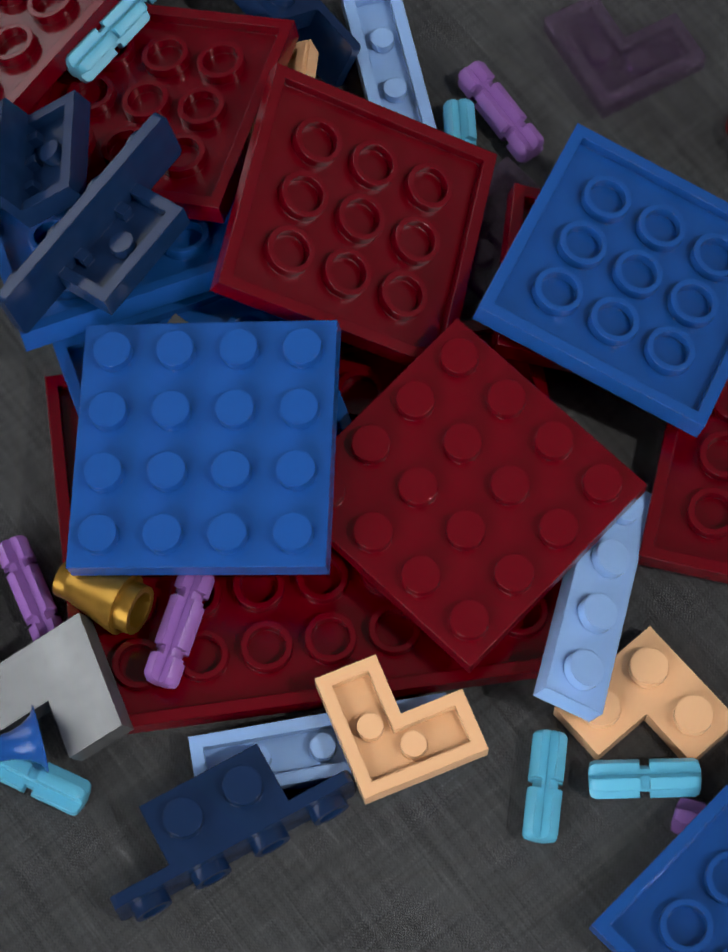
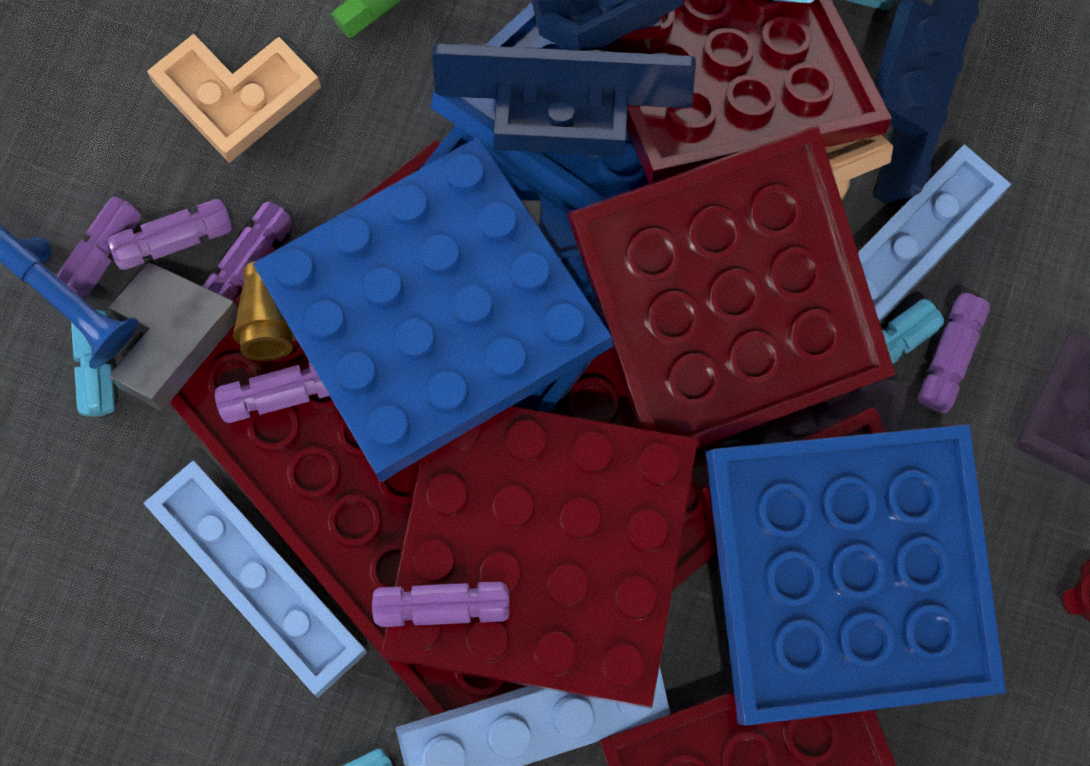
camera: 55 degrees right, 5 degrees up
(221, 819) = (138, 529): dark blue bracket -> none
(392, 747) = (275, 630): light nougat plate -> none
(465, 585) = (441, 604): none -> medium lavender axle

